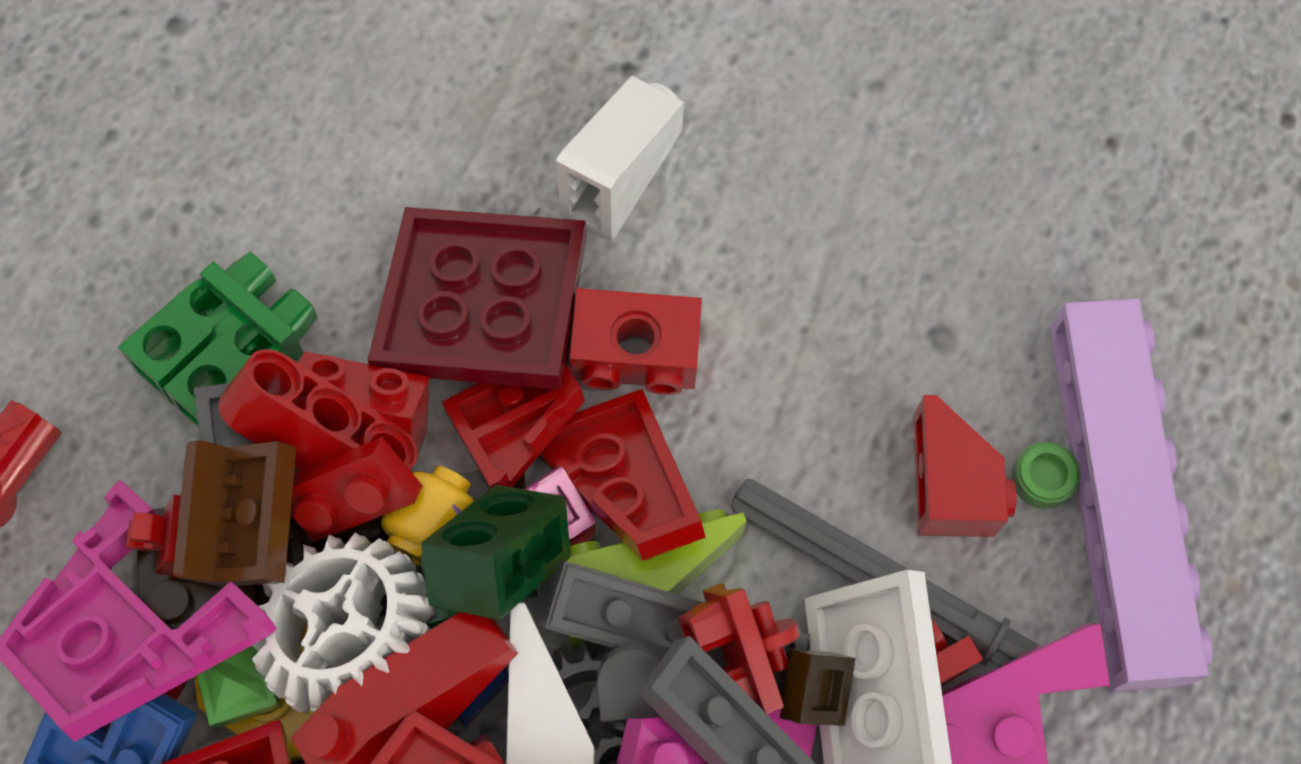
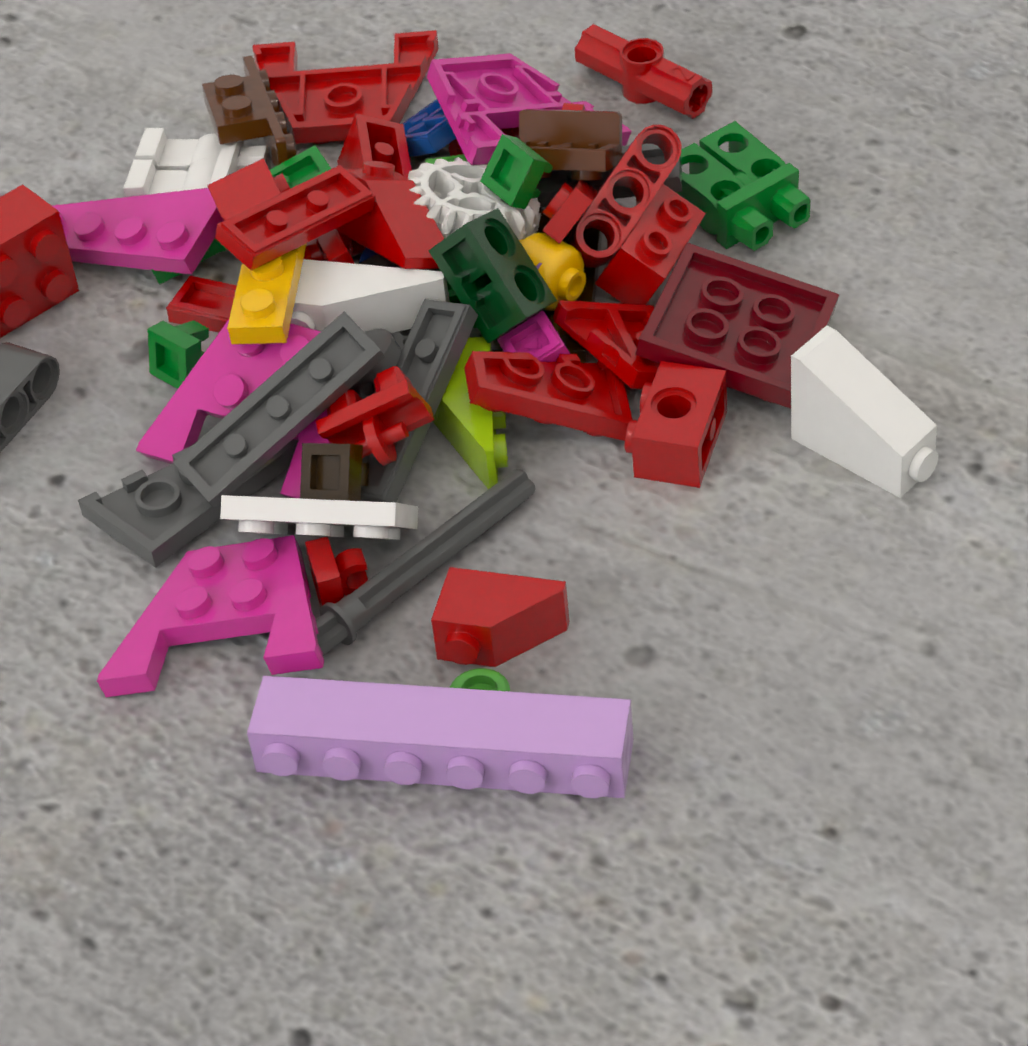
camera: 110 degrees right, 25 degrees down
(321, 549) = (515, 172): none -> green tile

